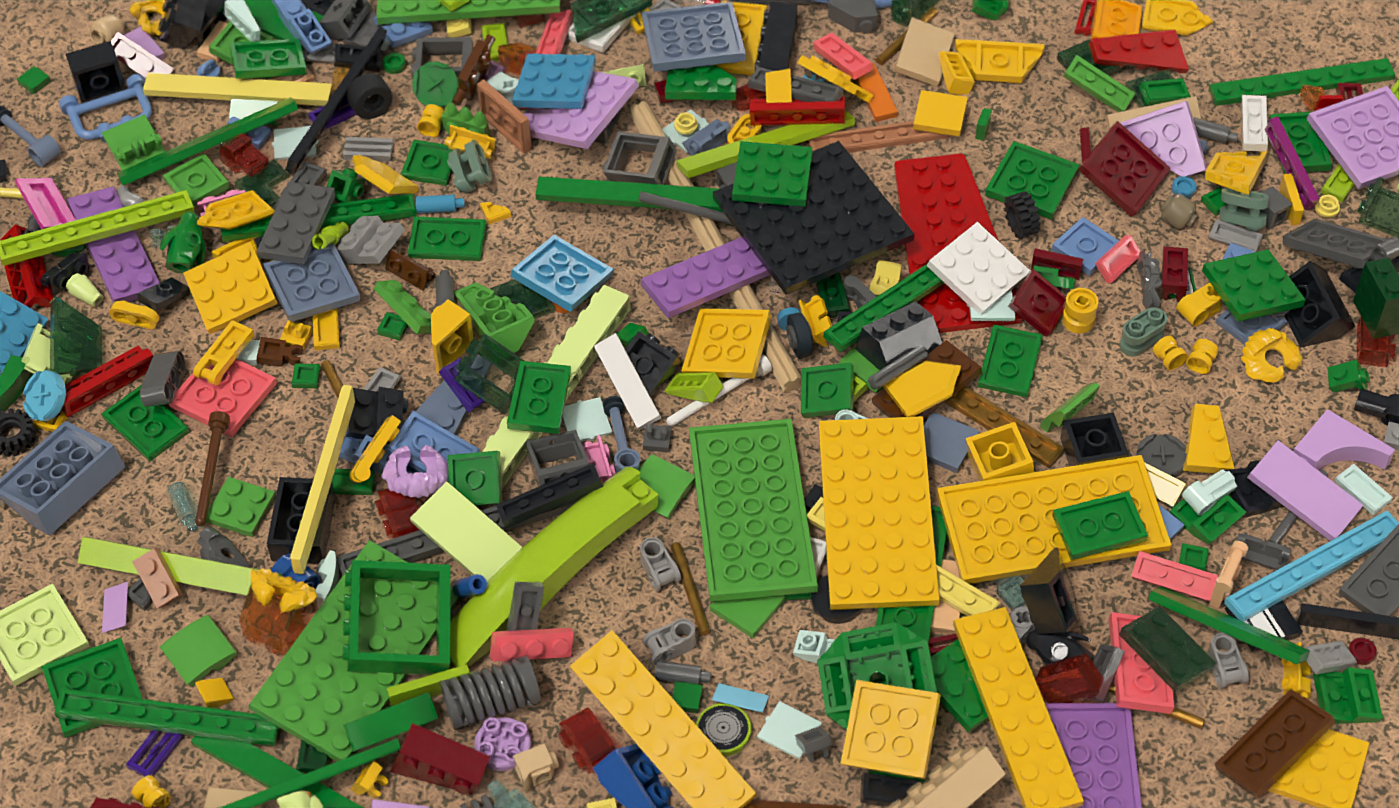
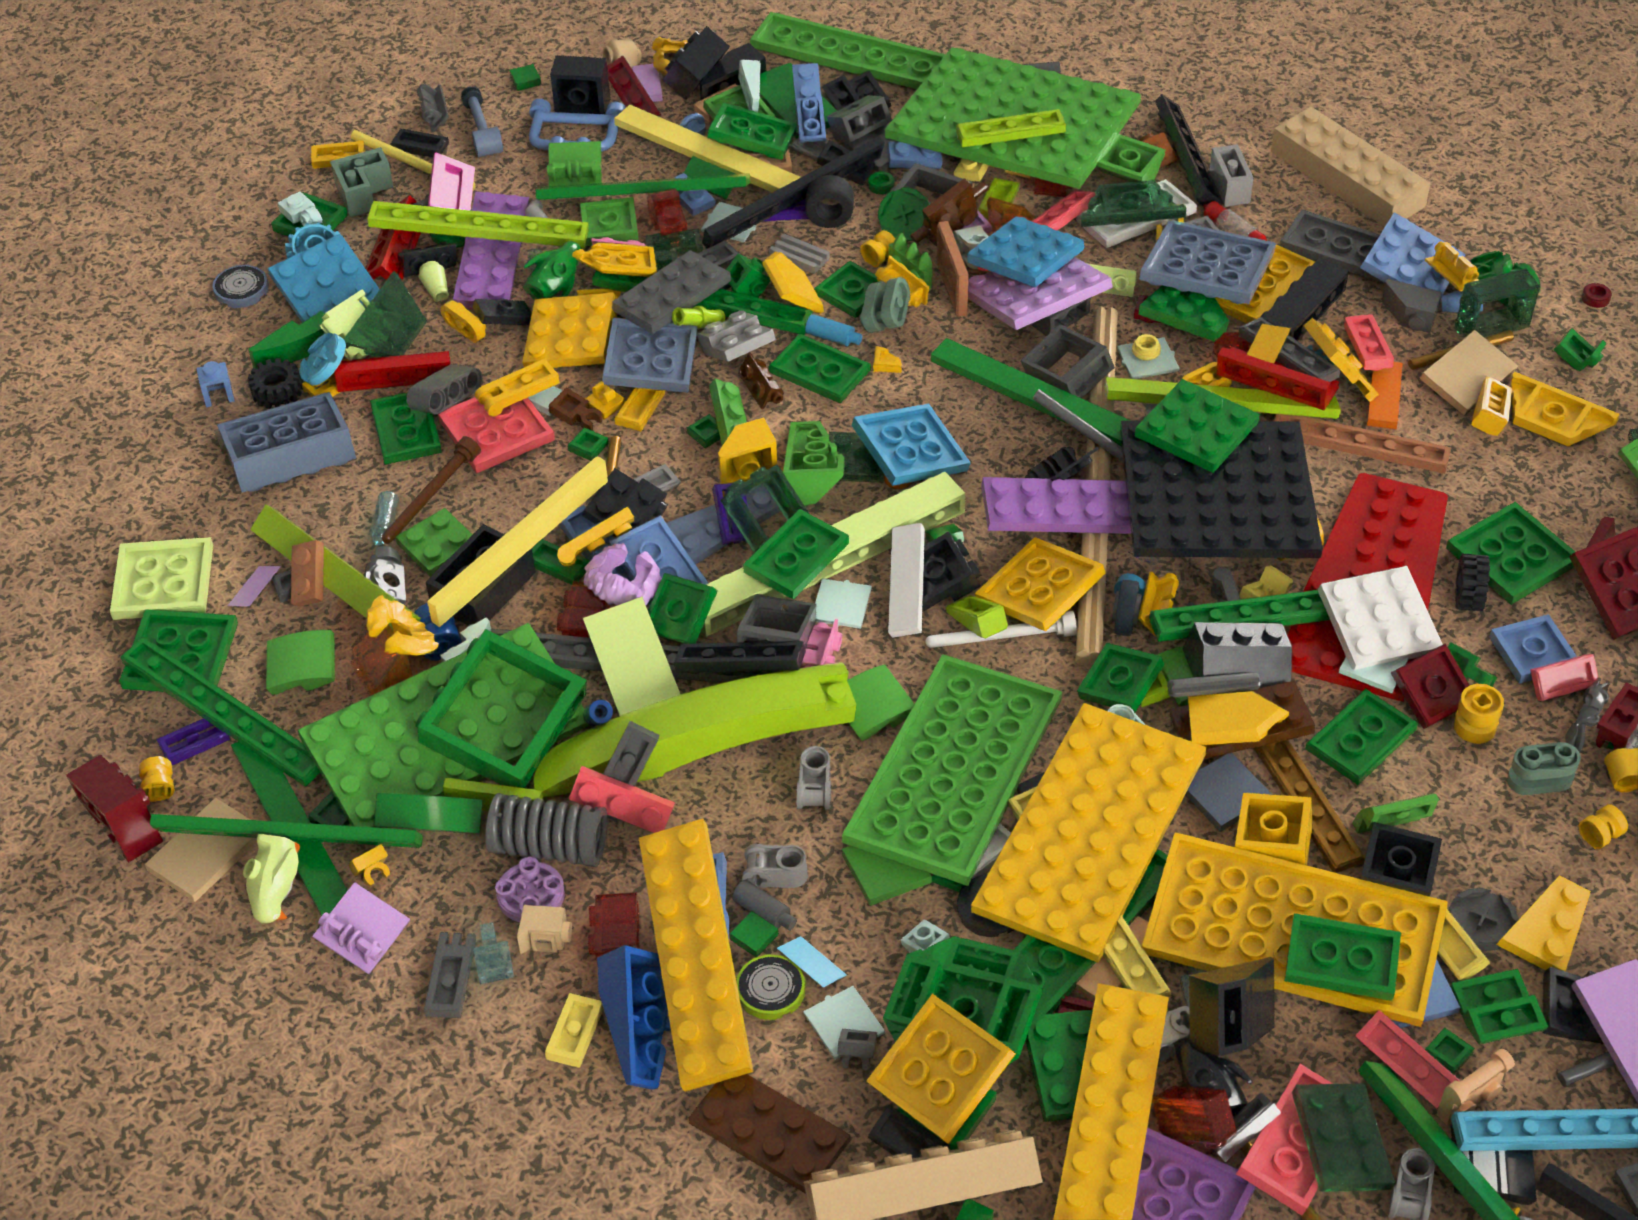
camera: 30 degrees right, 5 degrees down
(214, 692) = (285, 708): yellow slope -> none
(439, 761) = (448, 875): dark red wedge -> none
(444, 287) = (782, 415): dark grey cylinder -> none
(625, 456) = (853, 654): sand blue piece -> none
(657, 438) = (903, 652): dark grey tile -> none
(685, 245) = (1060, 465): none -> black hinge
(690, 589) = (835, 822): pearl gold bar -> none
(708, 137) = (1164, 369): sand blue hinge -> none
(833, 294) = (1196, 580): dark green plate -> none
(940, 113) = (1445, 441): yellow tile -> none
(983, 124) = (1490, 471): green tile -> none
(1068, 265) = (1493, 657): dark red tile -> none
(1170, 353) = (1563, 805): yellow wheel -> none
(1205, 494) = (1505, 983): light aqua piece -> none
(1264, 553) = (1541, 1082): dark grey hinge -> none

